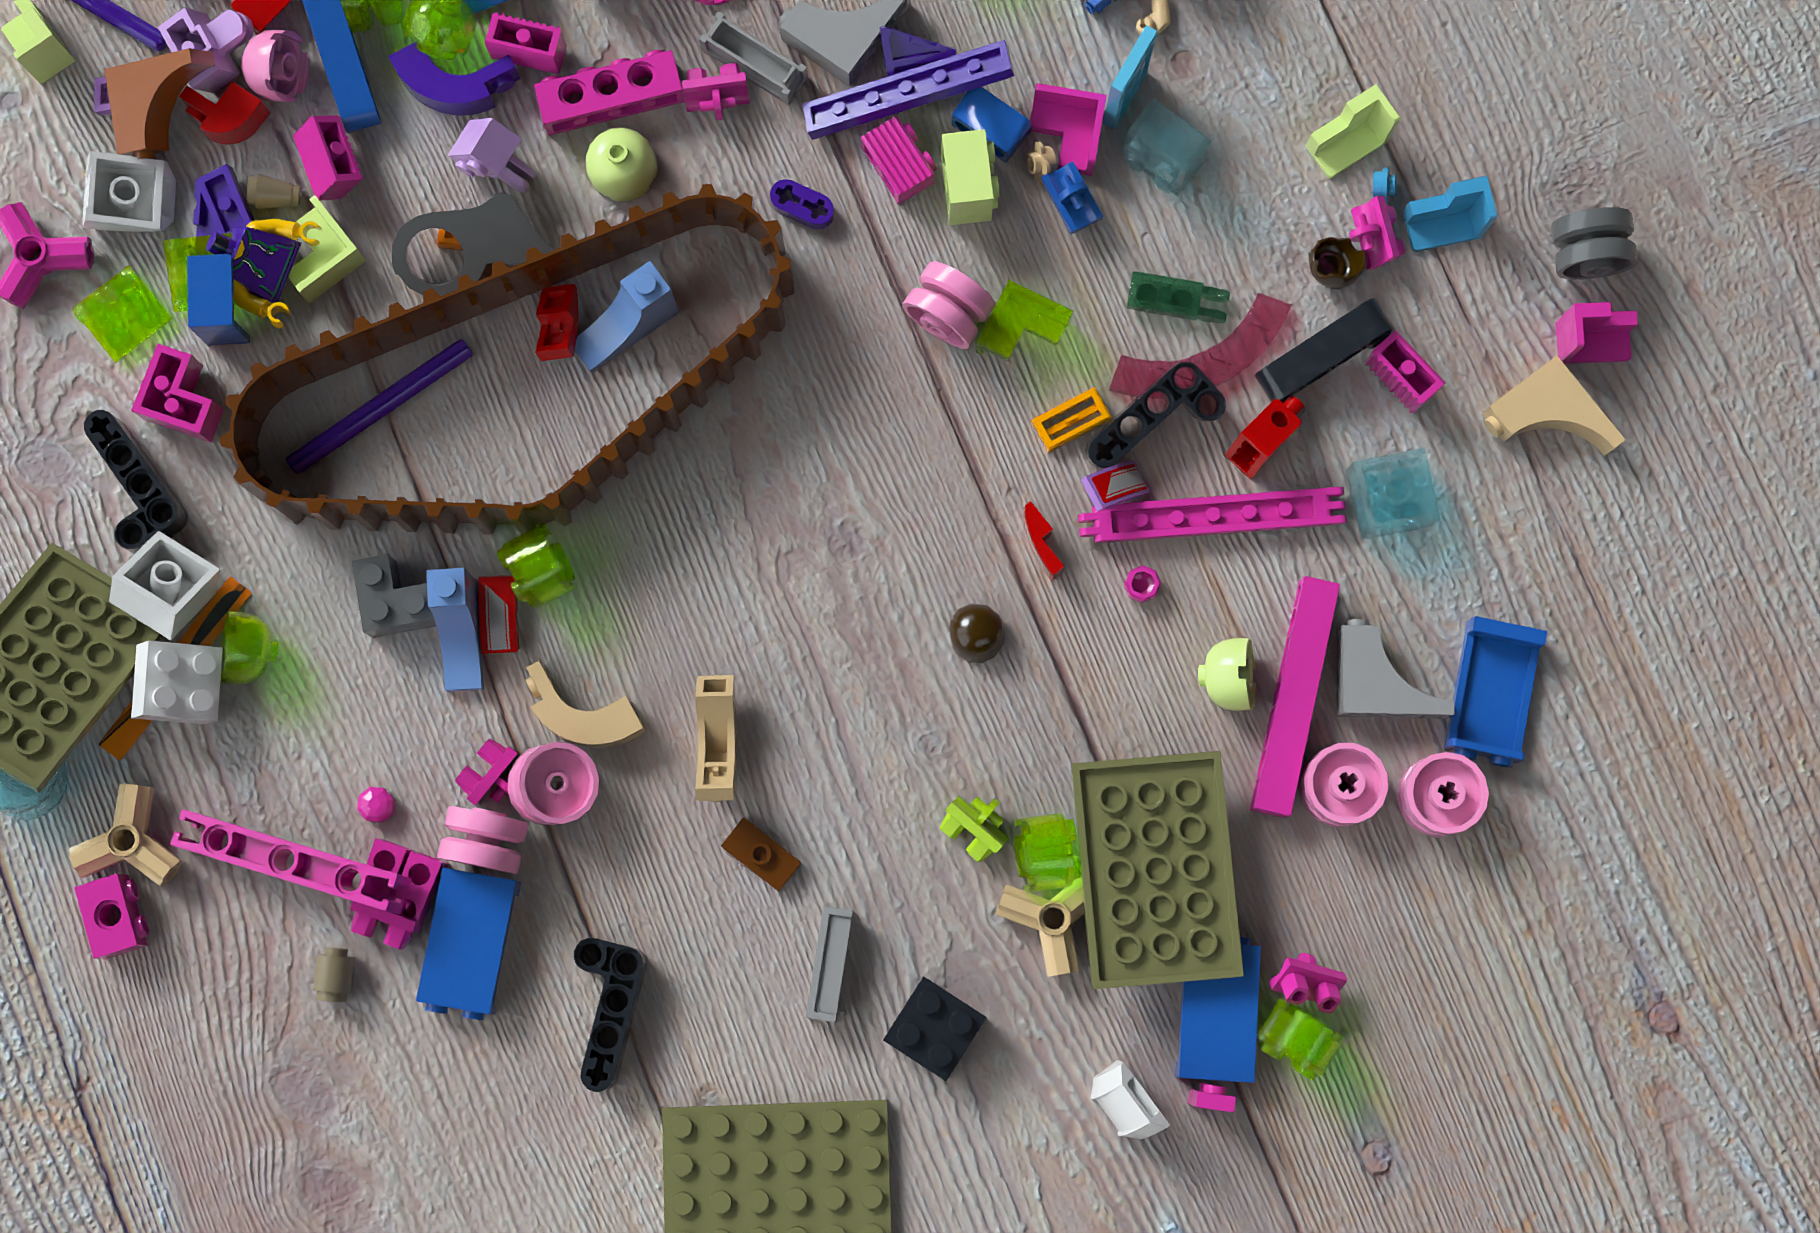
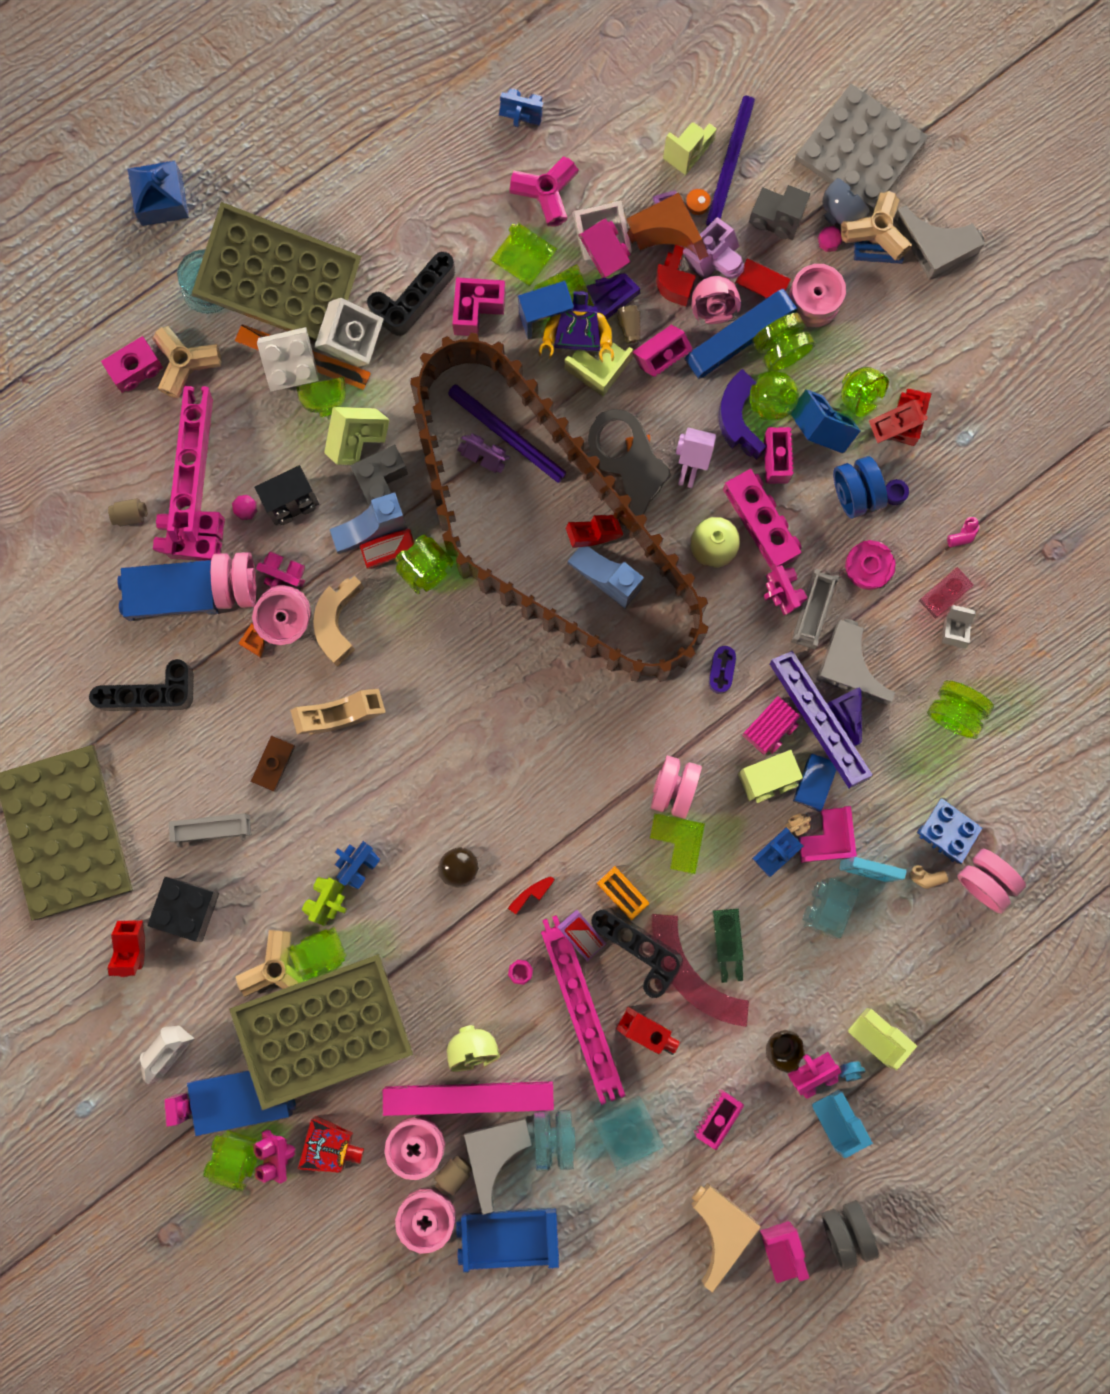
camera: 75 degrees right, 0 degrees up
(121, 50) = (698, 201): none -> orange tile
(153, 192) = (604, 247): none -> dark pink brick
(310, 623) = (350, 429): none -> yellowish green panel
(381, 733) = (287, 496): none -> black brick
(388, 454) = (492, 455): none -> medium lavender hinge
(575, 840) = (252, 641): none -> orange tile
(931, 775) = (349, 873): none -> blue hips
(969, 1120) = (128, 948): none -> red brick
(1314, 904) = (328, 1147): none -> red torso
(1326, 350) = (718, 1059): black beam -> none
(1380, 592) = (554, 1140): none -> clear light blue wheel
(1392, 745) = (453, 1176): none -> dark tan brick

